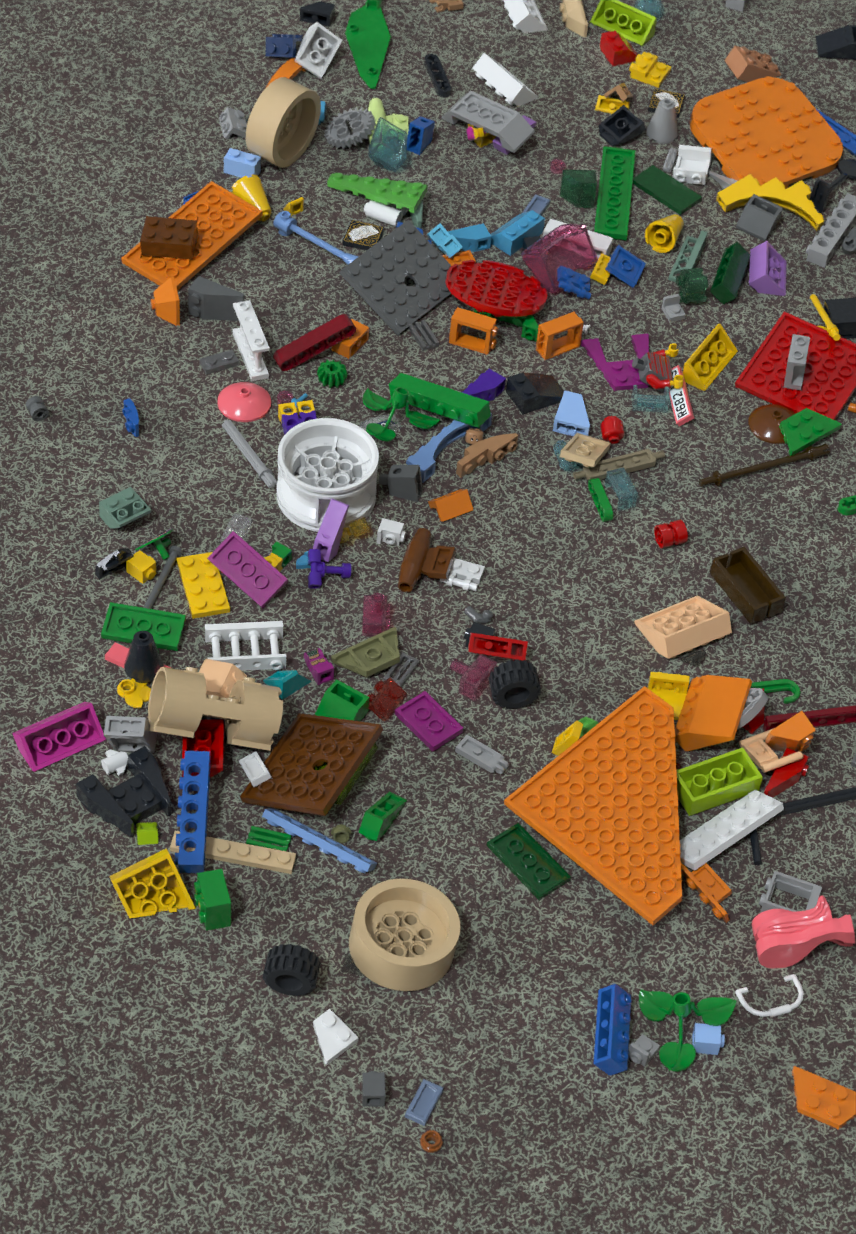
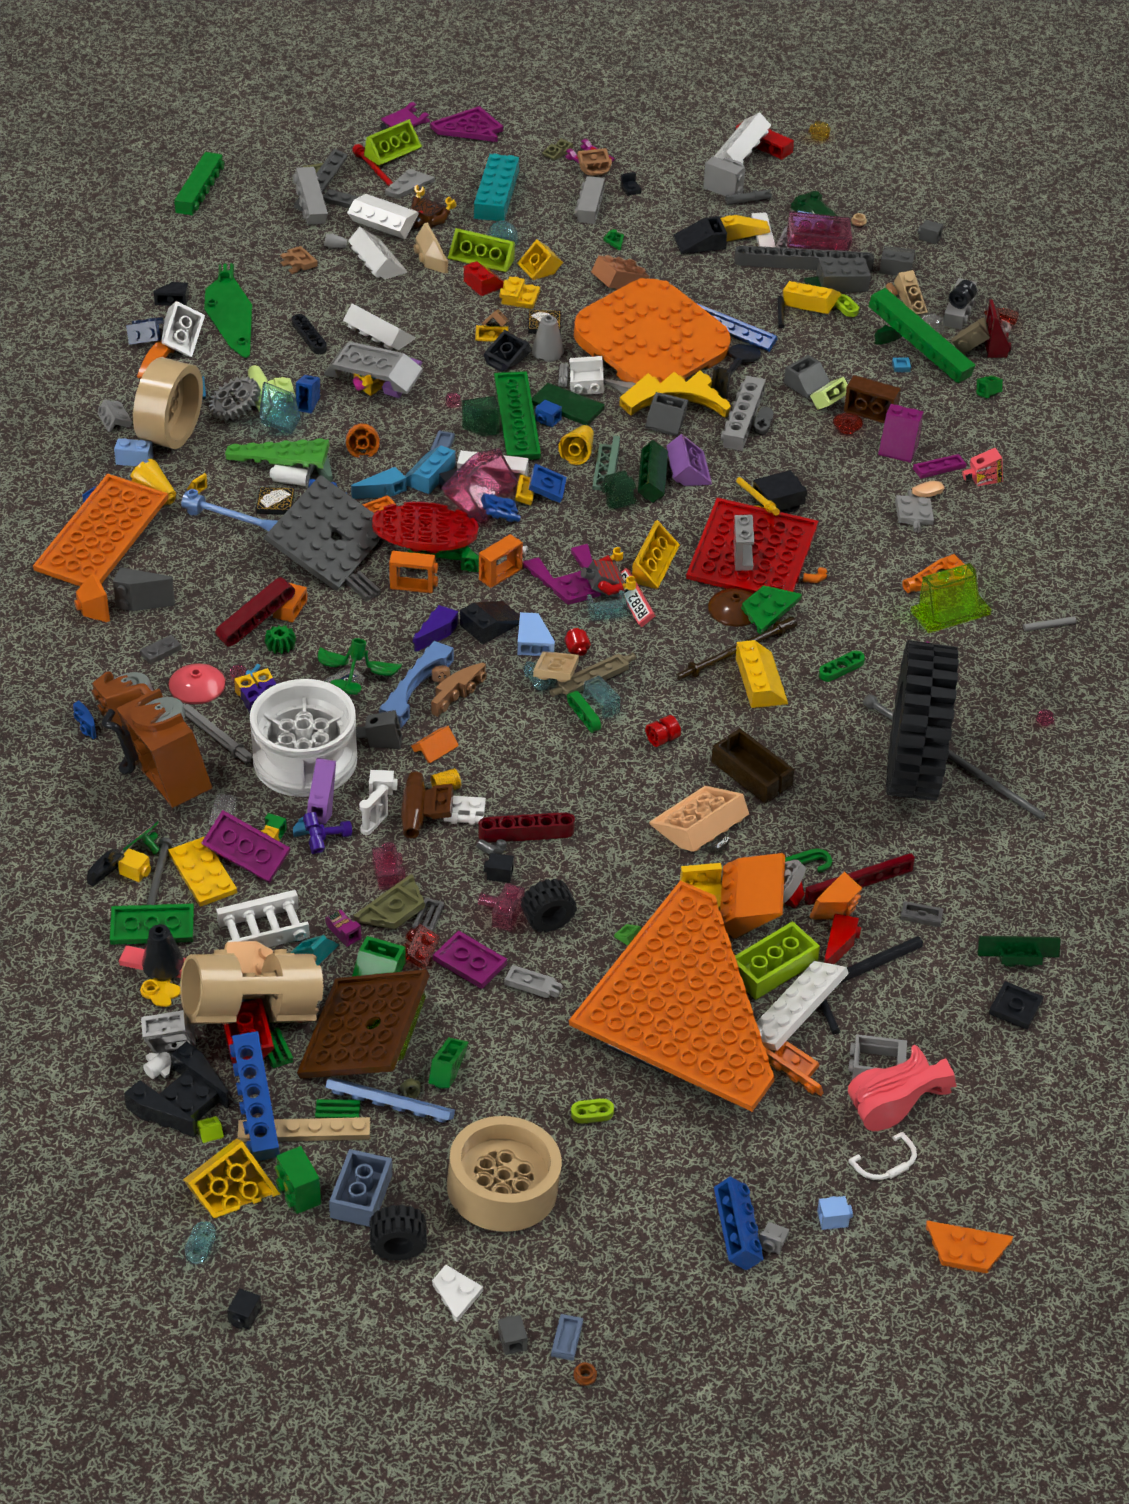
camera: 10 degrees left, 5 degrees down
(59, 736) = (93, 1050): dark pink slope -> none
(110, 940) = (200, 1244): none -> clear light blue plate
(122, 508) = (100, 811): sand green slope -> none
(134, 1010) = (244, 1309): none -> black brick
(169, 237) = (78, 536): reddish brown brick -> none
(186, 445) = (152, 735): none -> dark orange piece
(235, 769) = (282, 1061): none -> green tile
(250, 340) = (189, 621): white fence -> none
(255, 769) = (305, 1042): white tile -> none
(269, 918) = (360, 1187): none -> sand blue brick
(355, 528) = (346, 786): clear yellow leg -> none
(380, 558) = (374, 810): none -> white plate
(442, 400) = (401, 644): green brick -> none
(444, 241) = (359, 490): medium azure slope -> none
(453, 540) = (447, 777): none -> yellow piece
(459, 188) = (362, 437): none -> orange cylinder
(497, 646) = (521, 872): red slope -> none
(504, 891) = (592, 1111): none -> lime plate
(515, 603) = (526, 827): none -> dark red beam
(528, 861) = (608, 1076): dark green tile -> none
(567, 738) = (615, 947): yellow plate -> none
(645, 196) = (548, 413): none -> blue brick
(658, 1004) = (775, 1190): green plant -> none
(672, 308) = (604, 515): light grey bracket -> none
(677, 40) = (539, 261): none -> yellow slope
(756, 30) = (614, 239): none -> green piece
(763, 755) = (815, 926): light nougat plate -> none
(780, 496) = (759, 675): none -> yellow slope

